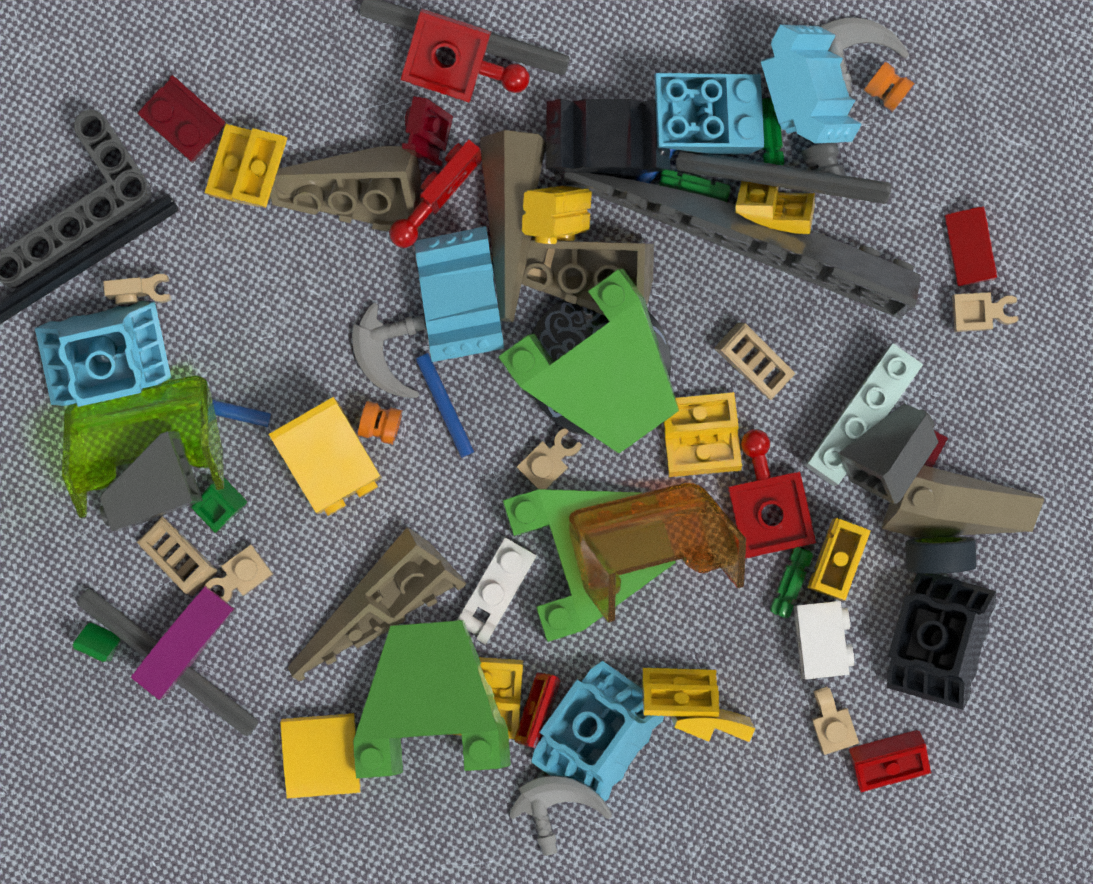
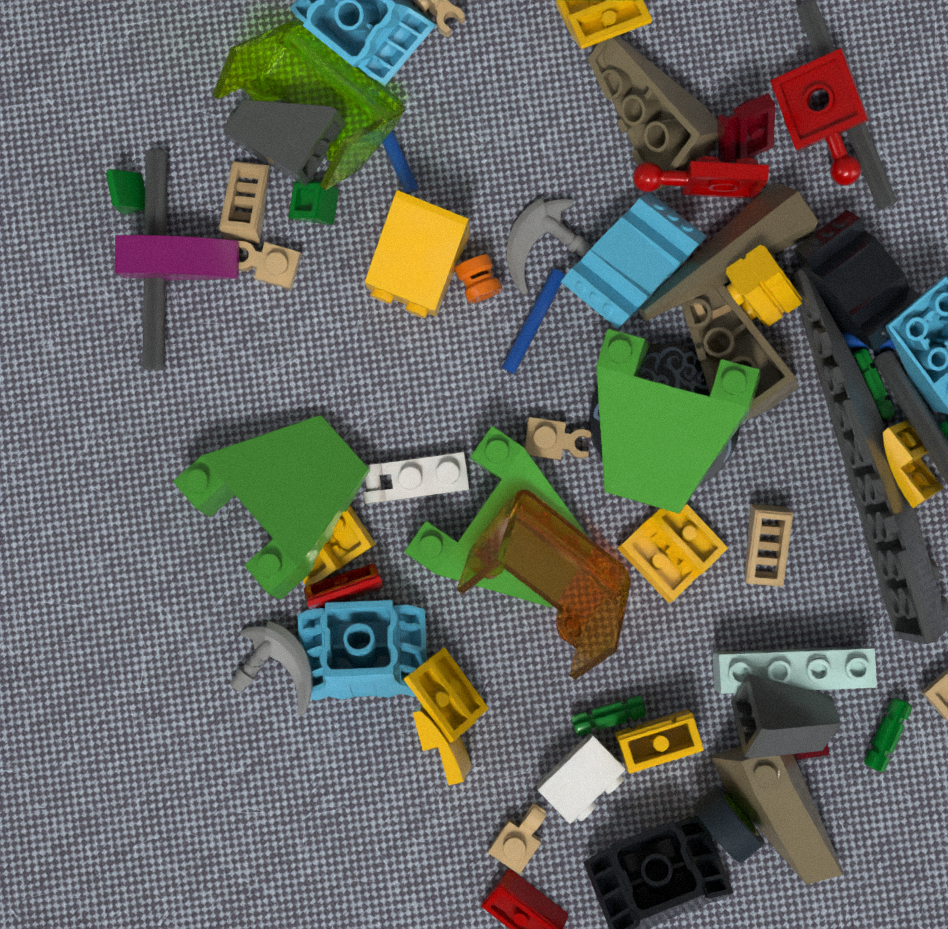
camera: 65 degrees right, 0 degrees up
(319, 755) = (171, 437): yellow slope -> none
(400, 582) = (360, 395): dark tan wedge -> none
(783, 491) = (677, 650): red plate -> none
(967, 381) = (888, 734): none -> green axle

